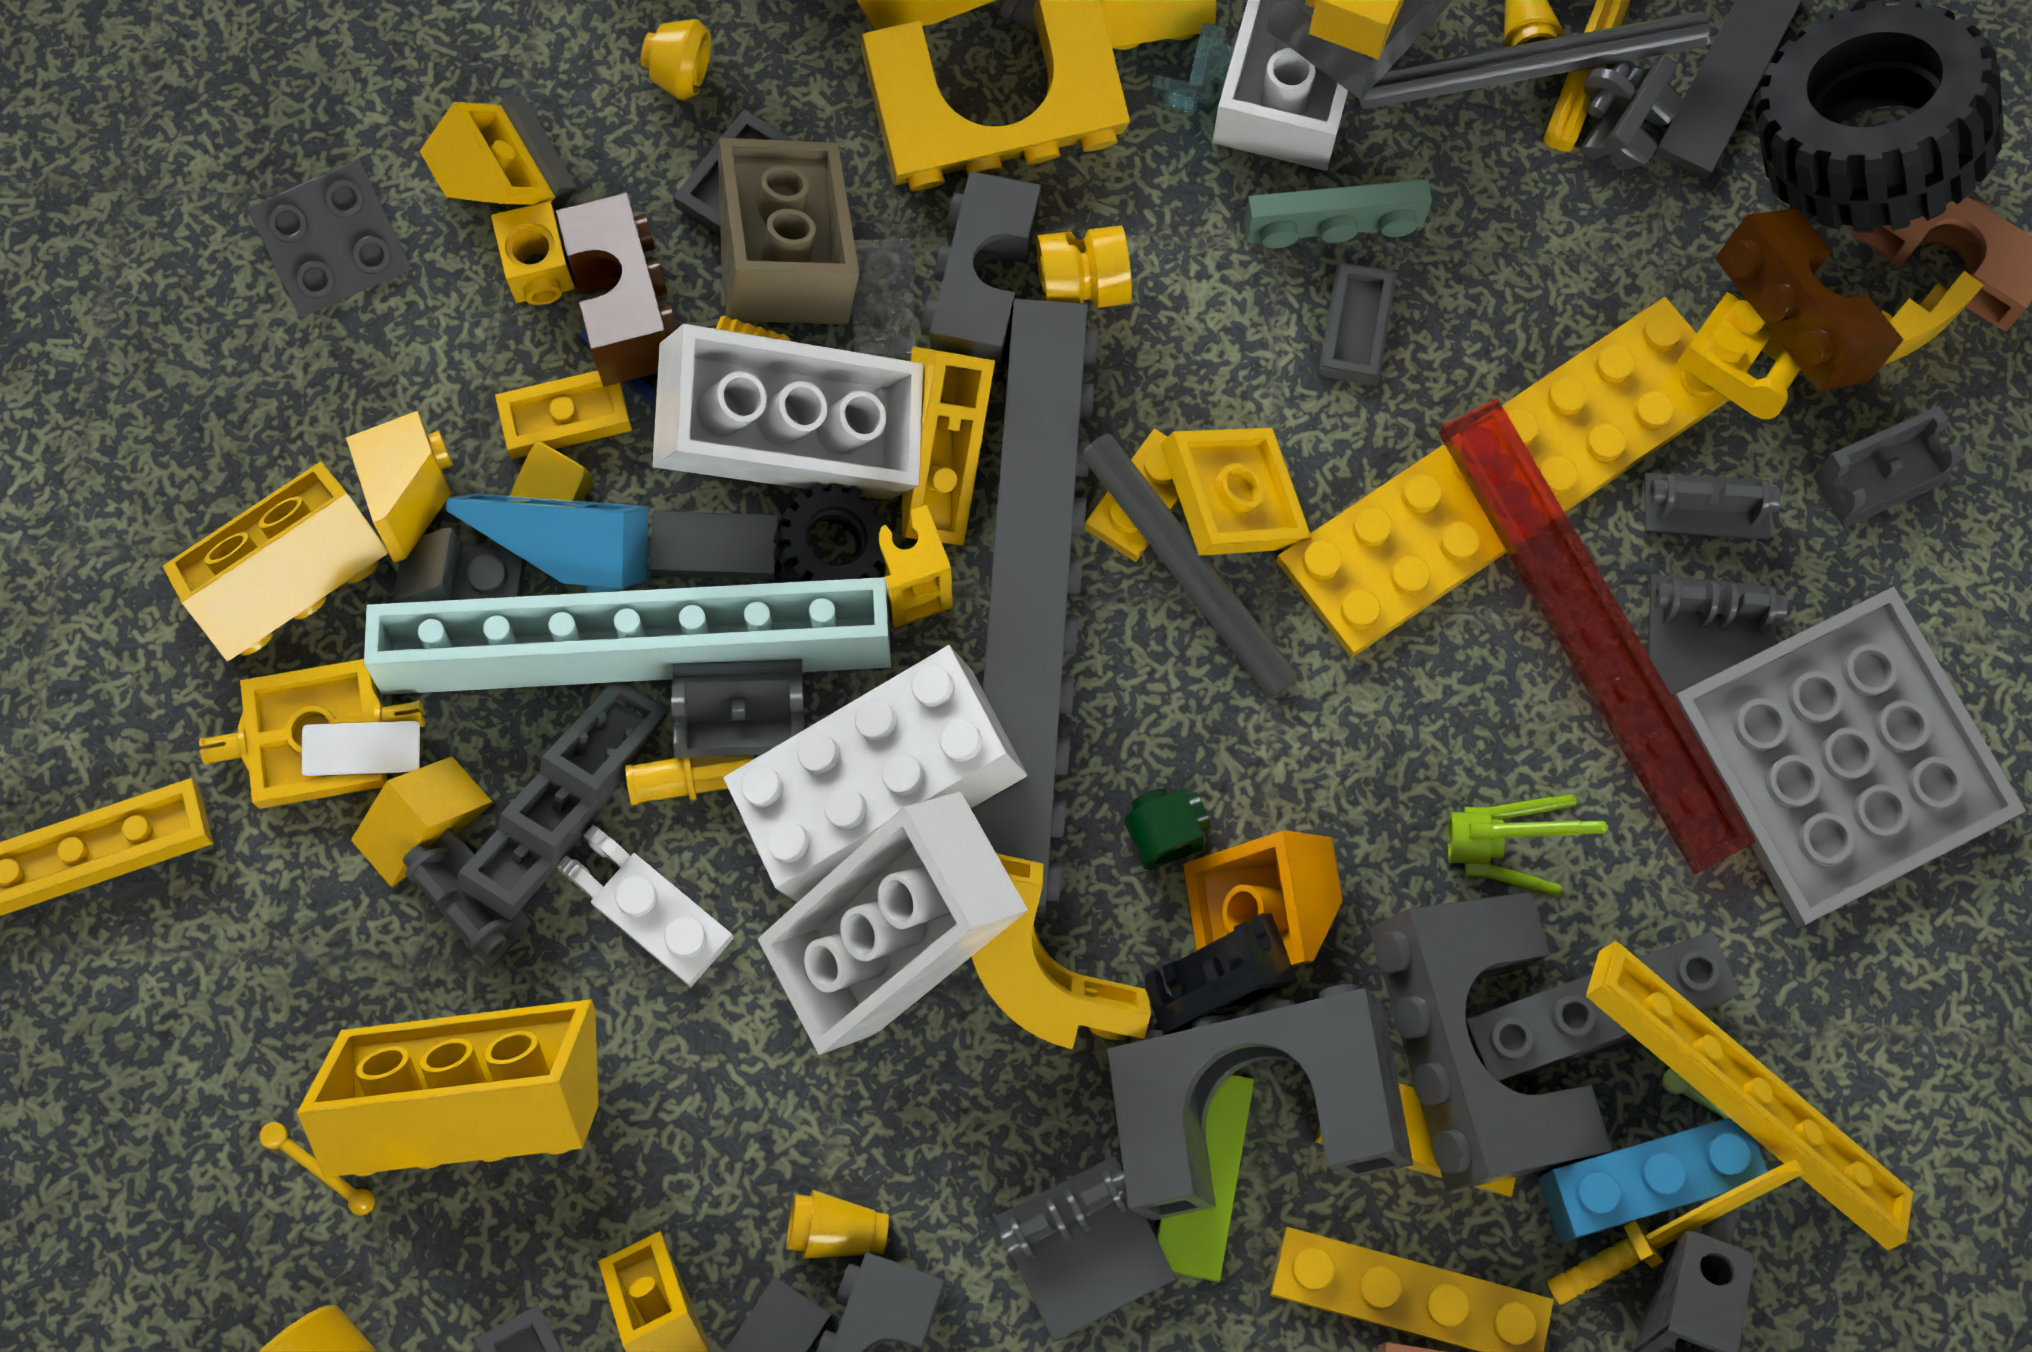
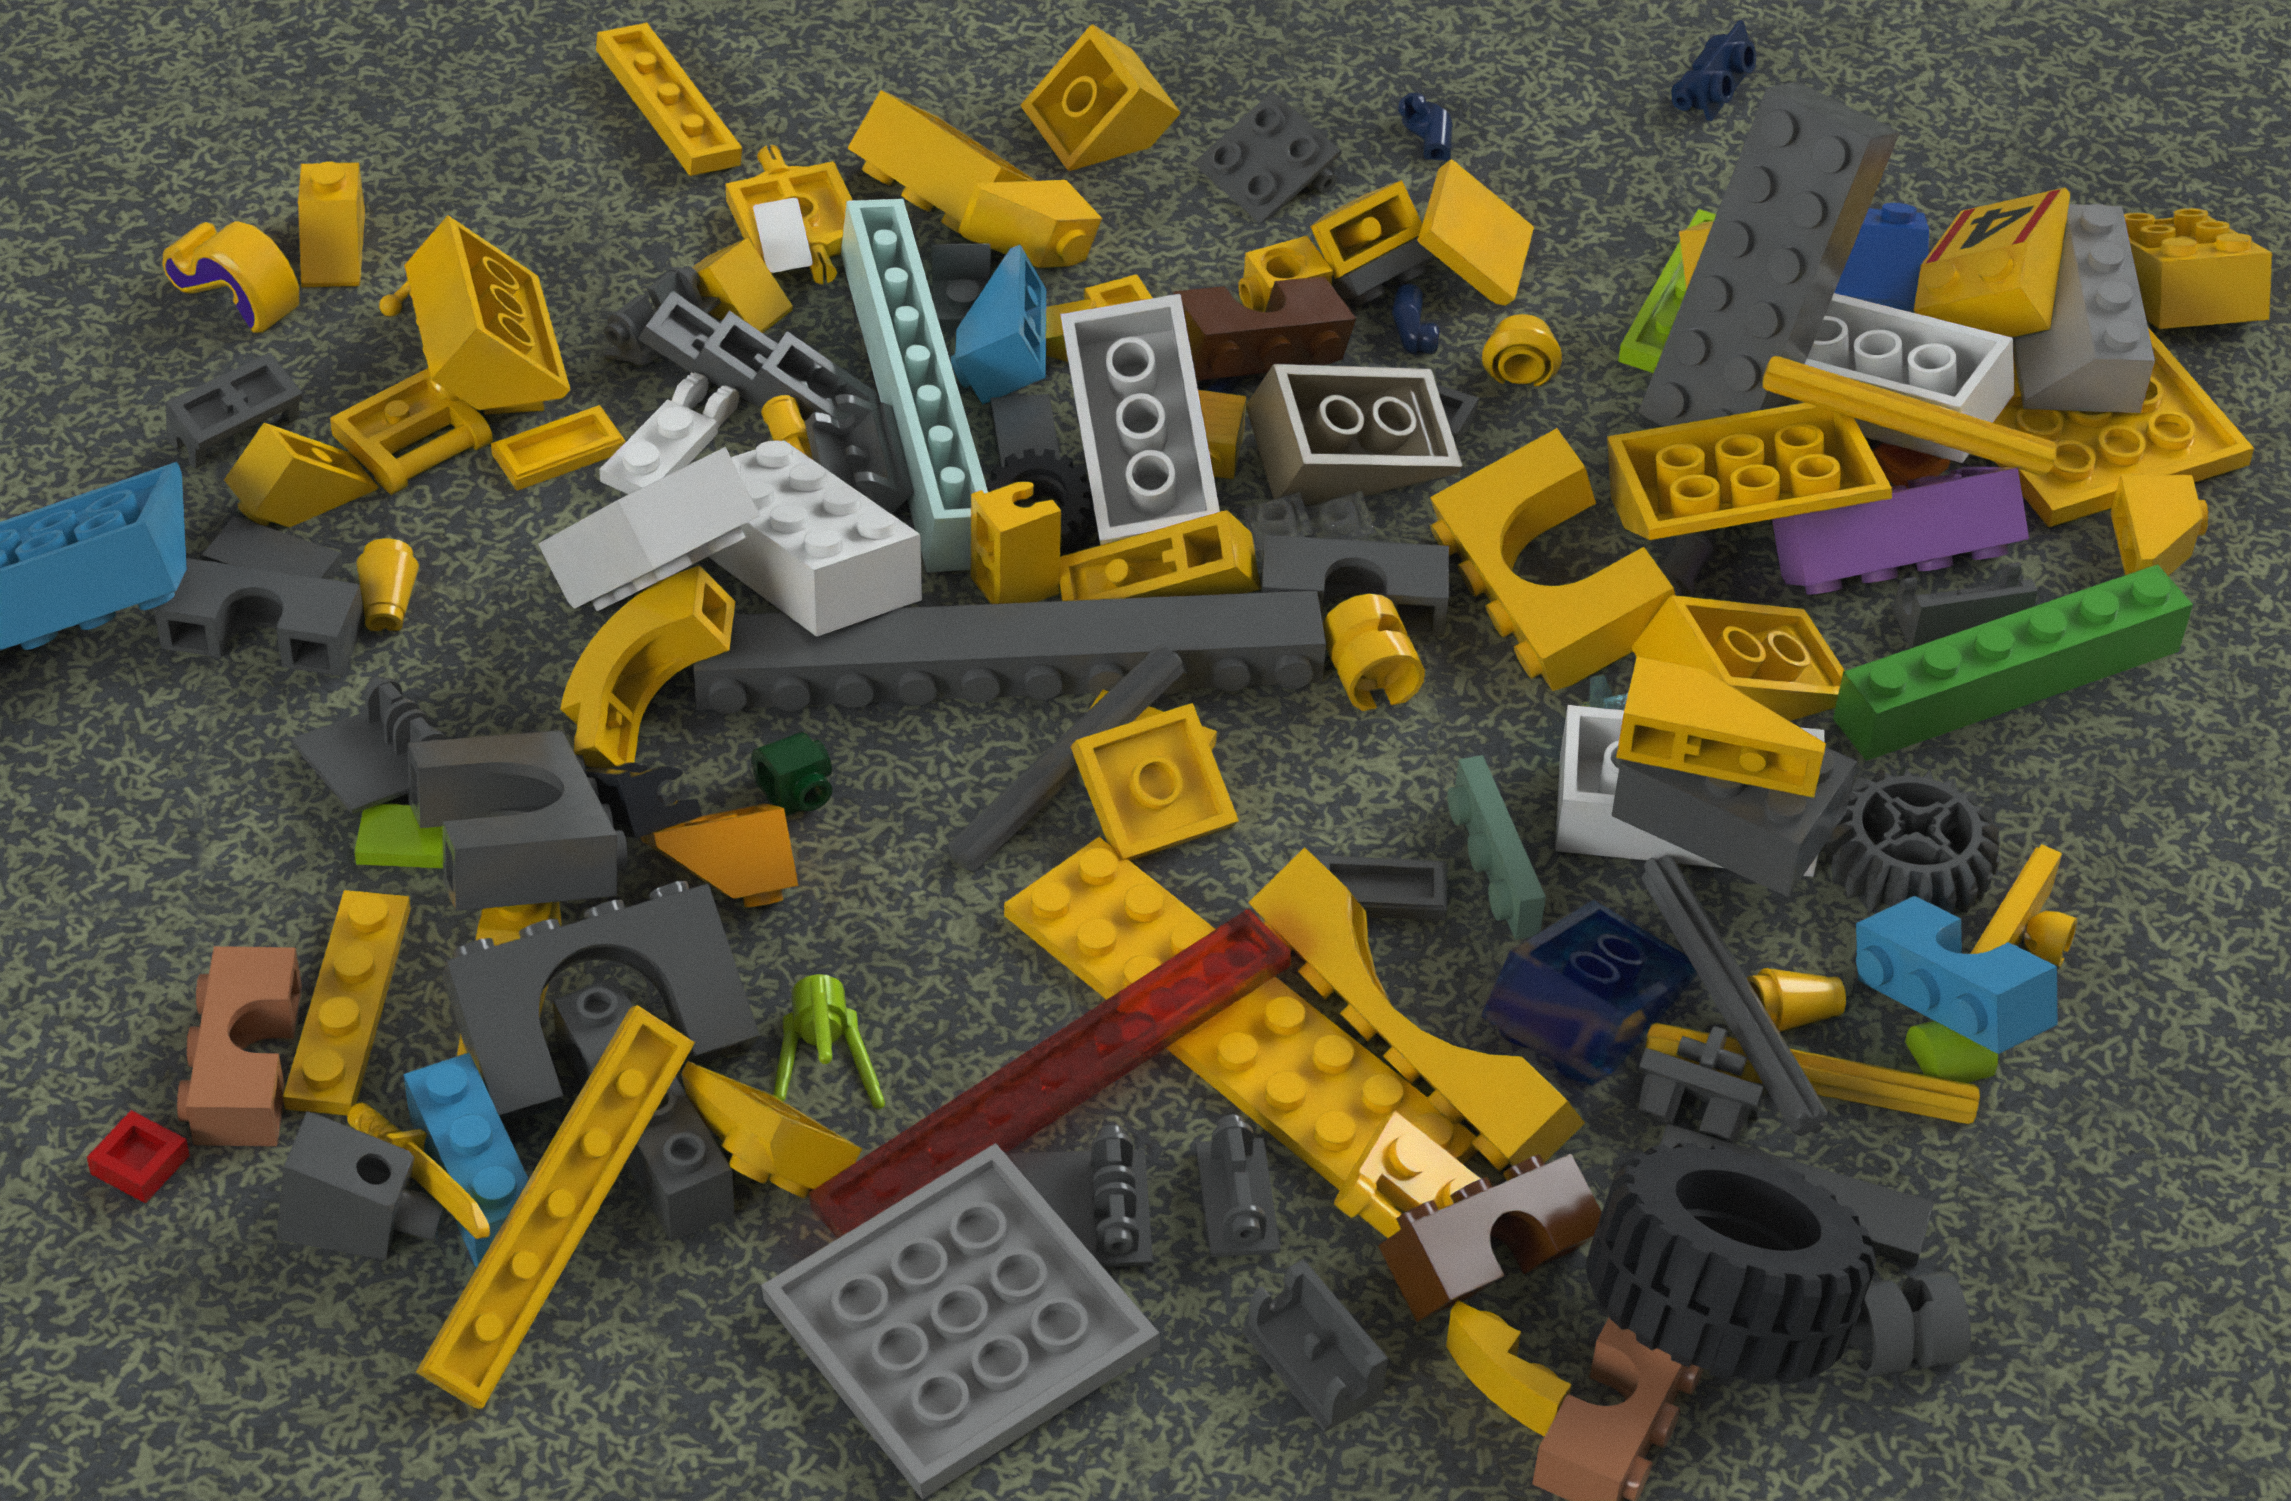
camera: 80 degrees right, 25 degrees down
(203, 391) = (1099, 103): none -> yellow slope
(228, 1262) = (330, 224): none -> yellow slope
(302, 74) = (1429, 123): none -> dark blue arm
(506, 61) = (1476, 234): none -> yellow tile
(571, 1206) = (400, 418): none -> yellow plate
(620, 152) = (1407, 316): none -> dark blue arm
(636, 1028) = (557, 447): none -> yellow tile
(1511, 171) = (1586, 991): none -> clear blue slope
(1639, 267) = (1496, 1094): none -> yellow arch
(1645, 892) = (767, 1133): none -> yellow slope

